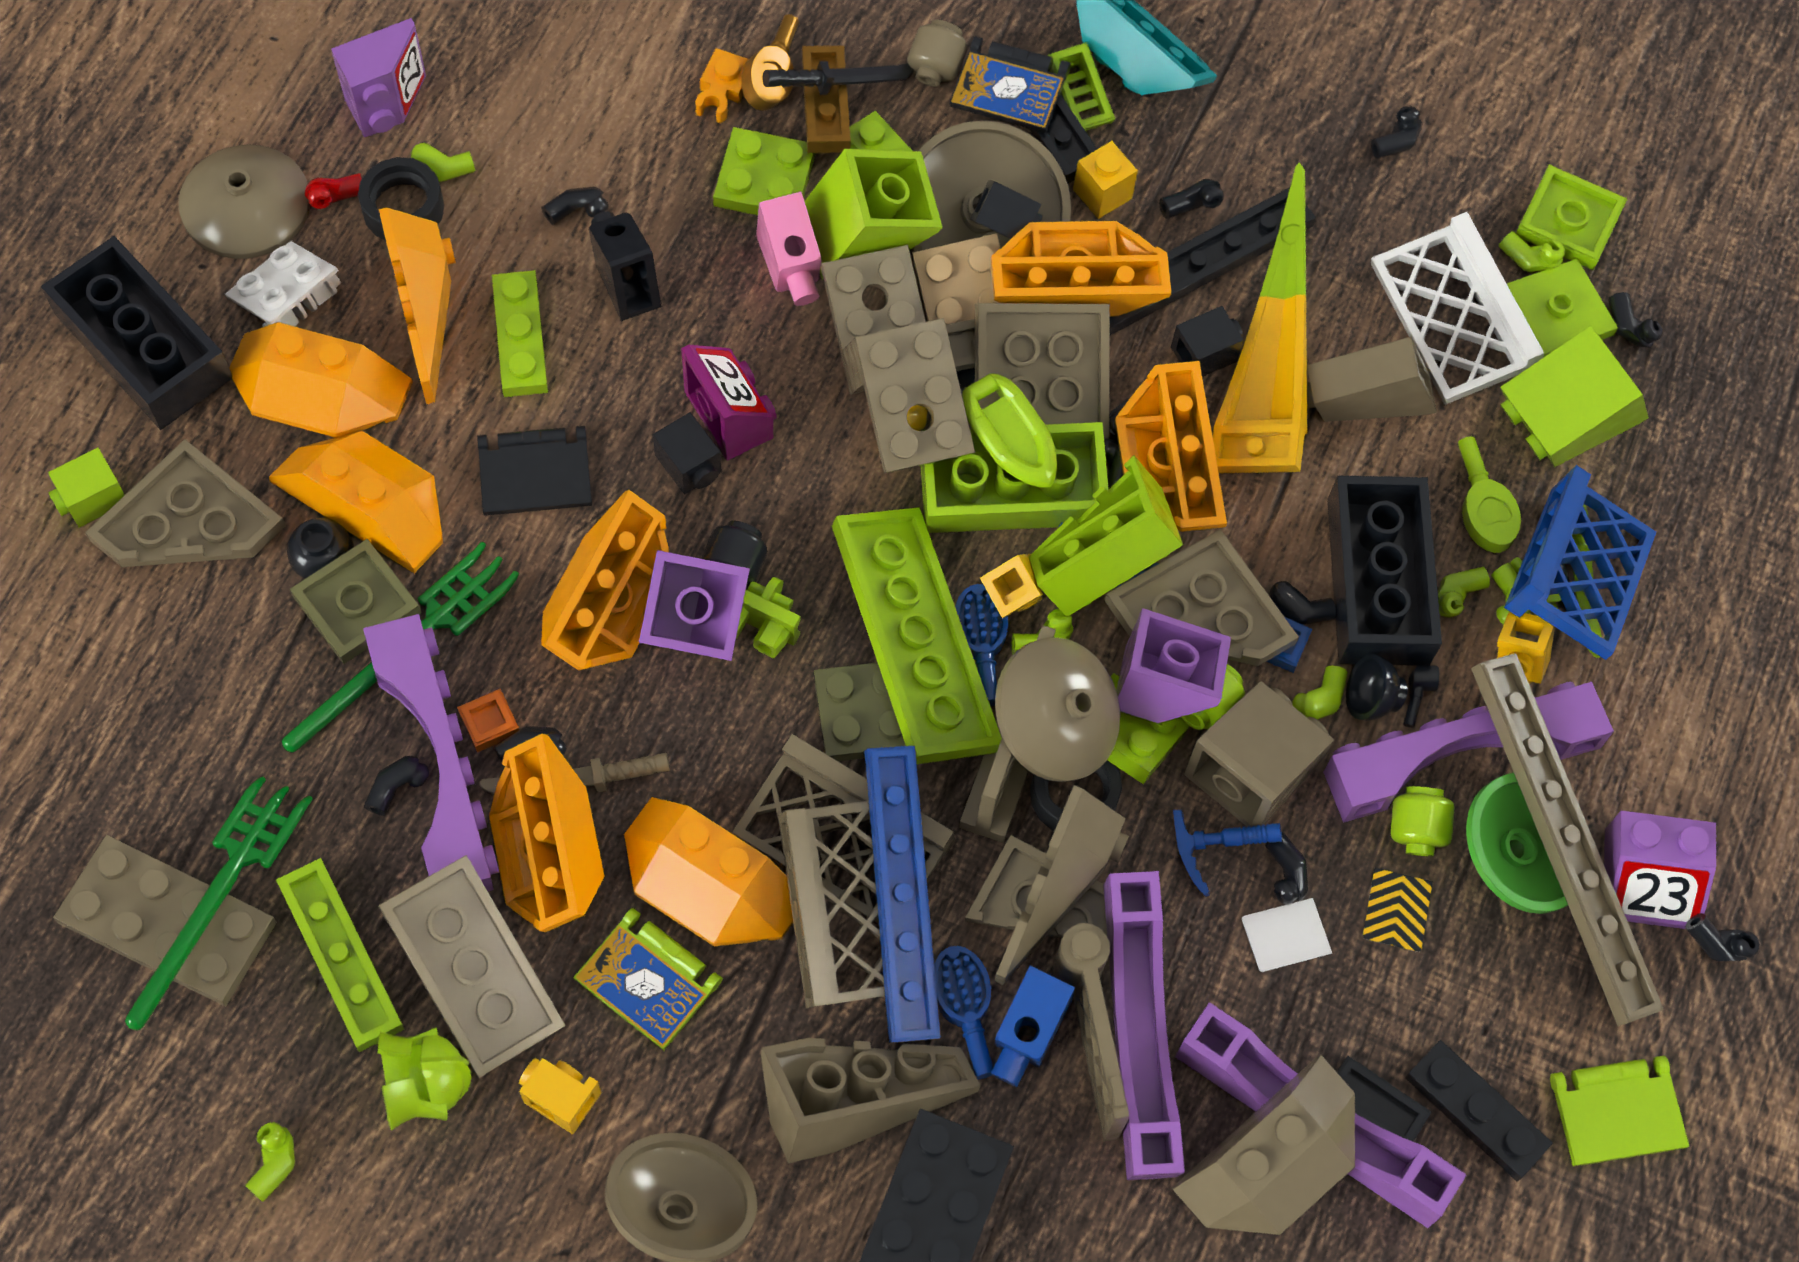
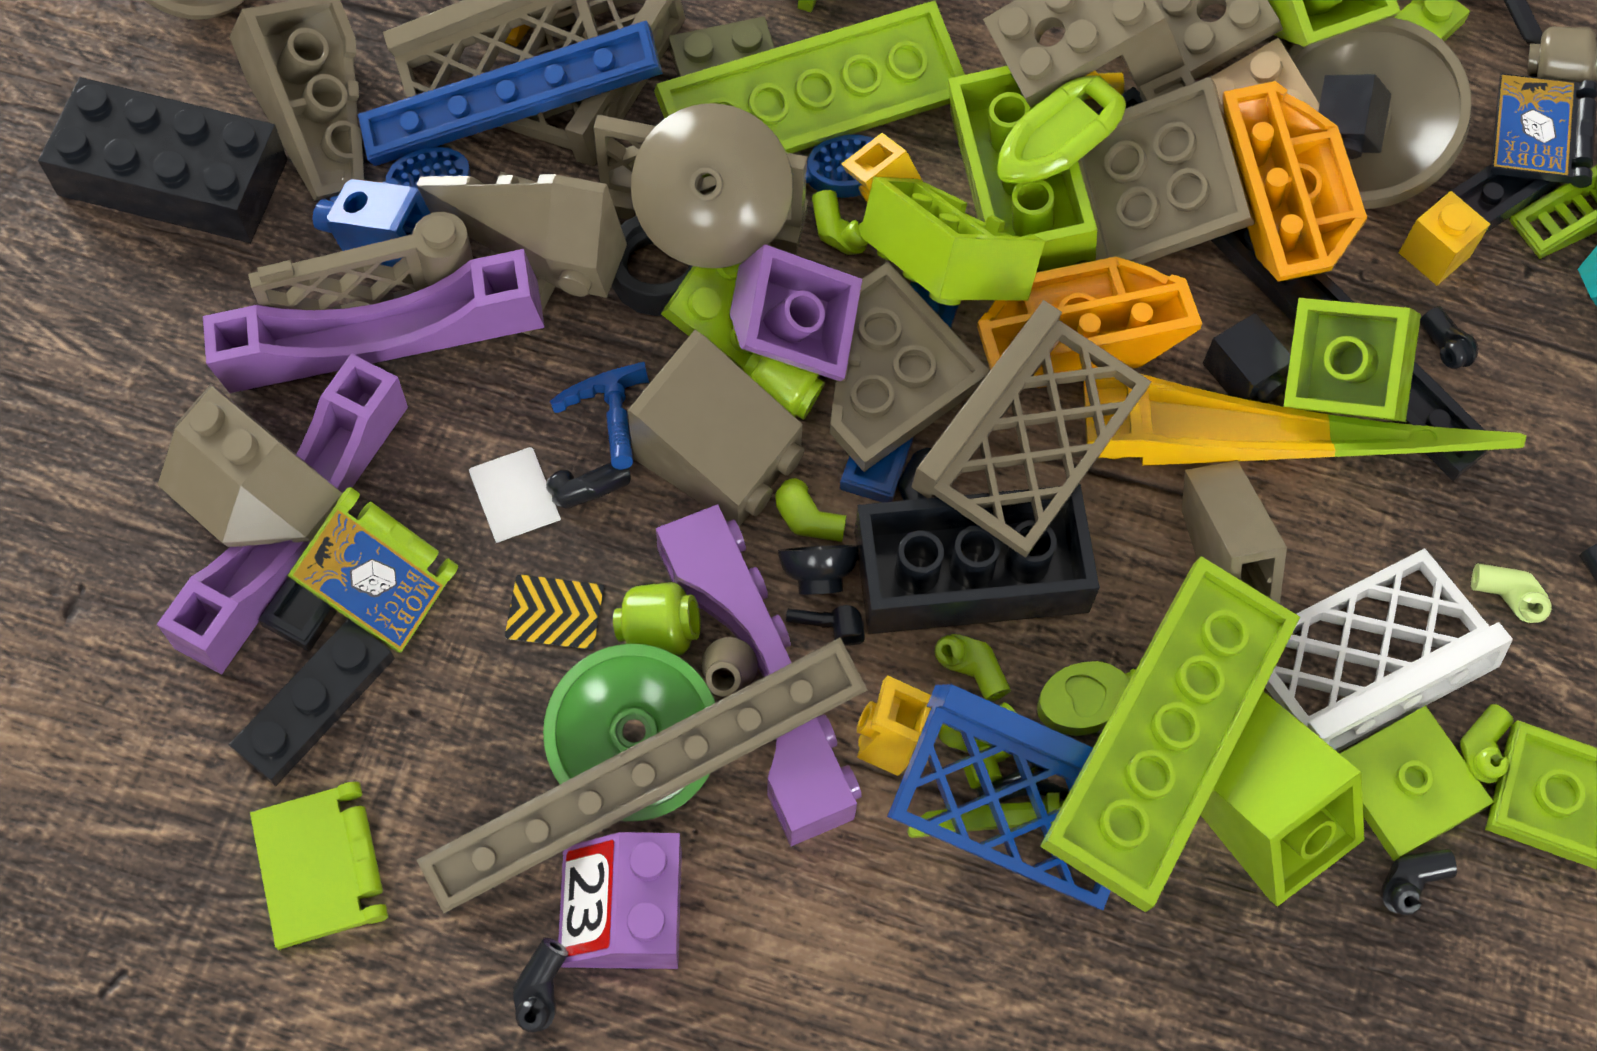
camera: 85 degrees right, 0 degrees up
(1234, 262) = (1352, 359): none -> lime brick
(1267, 519) = (992, 400): none -> dark tan fence
(1376, 1042) = (372, 571): none -> piece
(1408, 204) = (1516, 588): none -> yellowish green arm
(1470, 767) = (733, 655): none -> dark tan cone
(1552, 444) = (1171, 735): none -> lime plate

